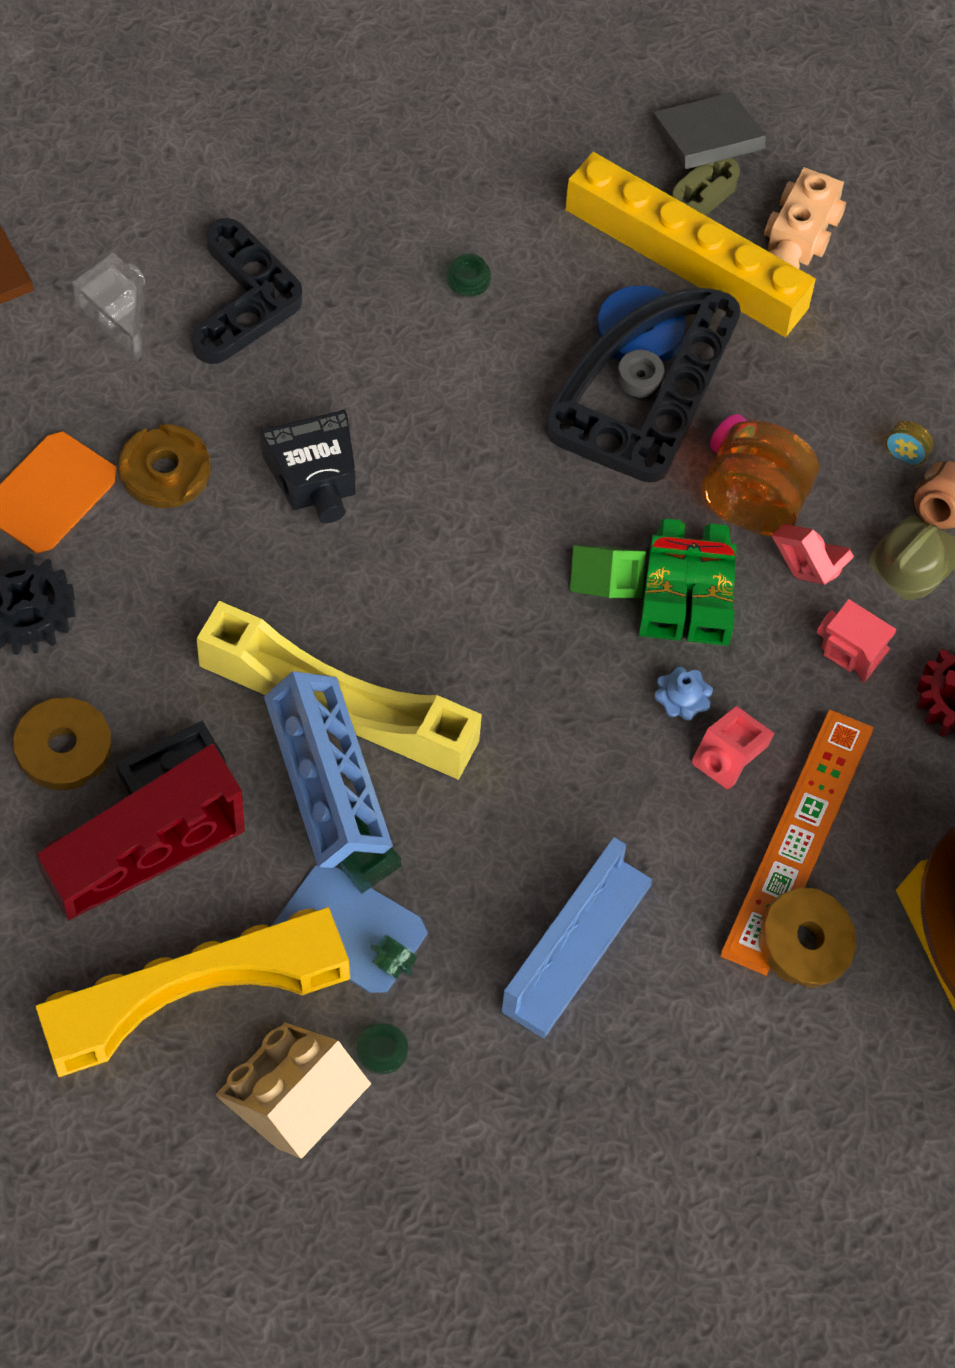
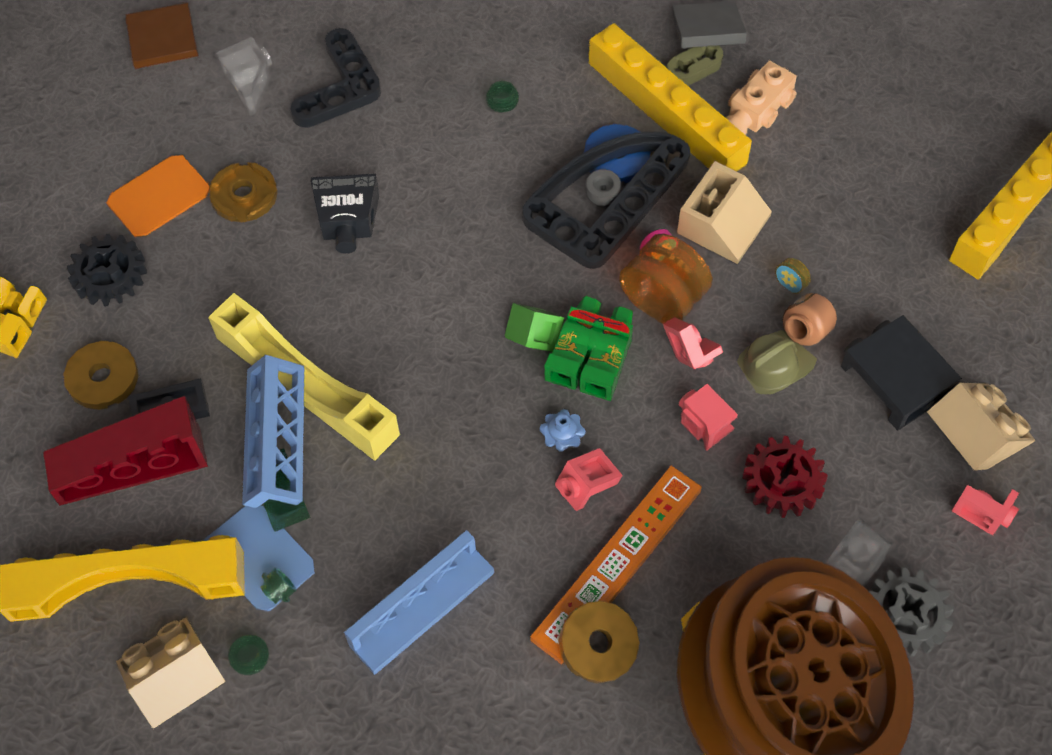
camera: 20 degrees right, 0 degrees up
(804, 380) = (723, 213): none -> tan slope

